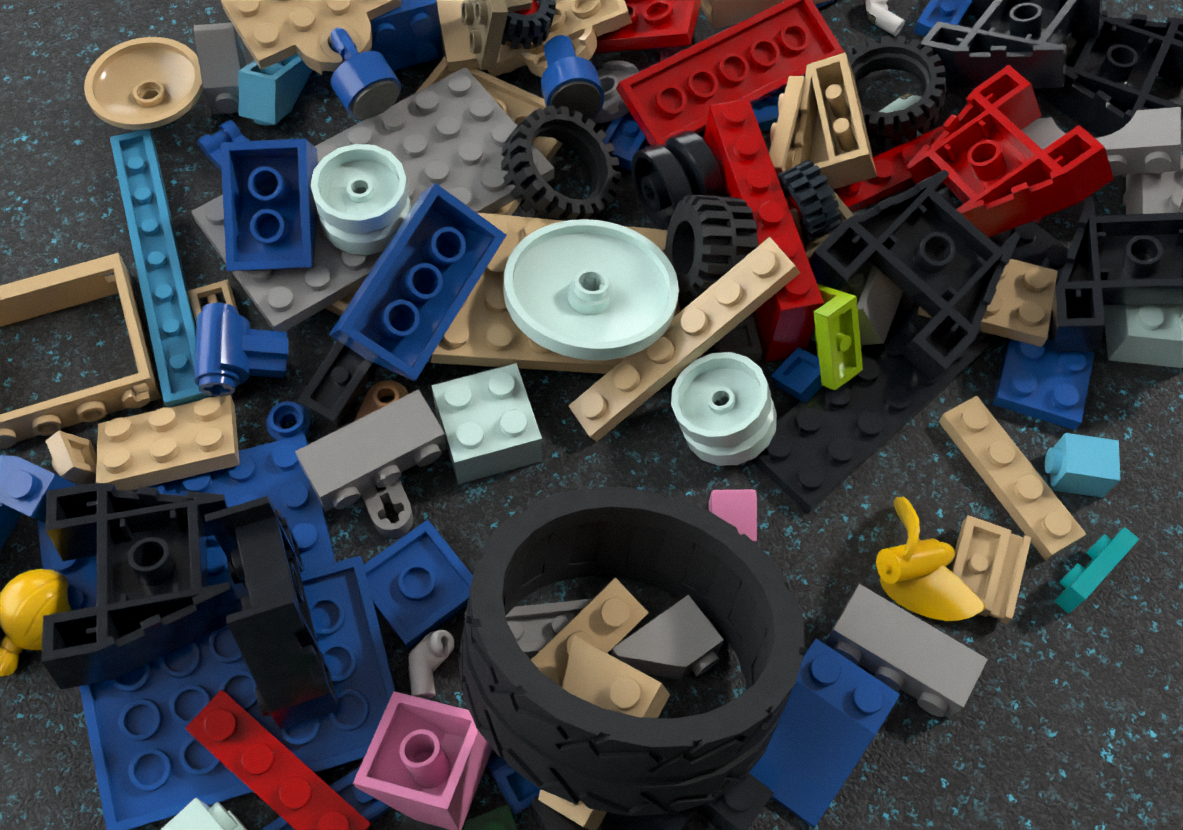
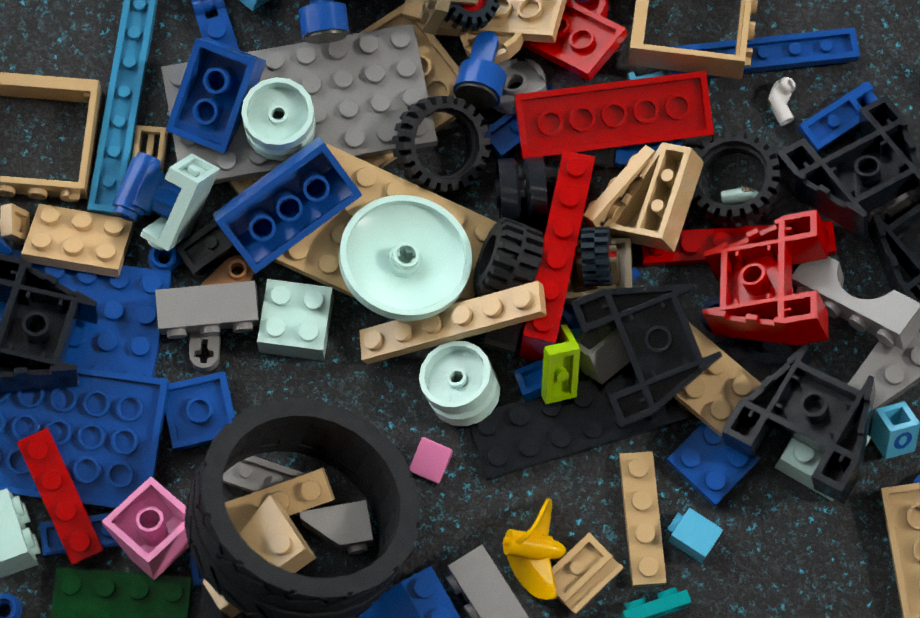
camera: 25 degrees right, 10 degrees up
(276, 621) = (94, 410): black wedge -> none
(293, 341) = (196, 180): none -> light aqua panel
(426, 659) = (182, 463): white arm -> none

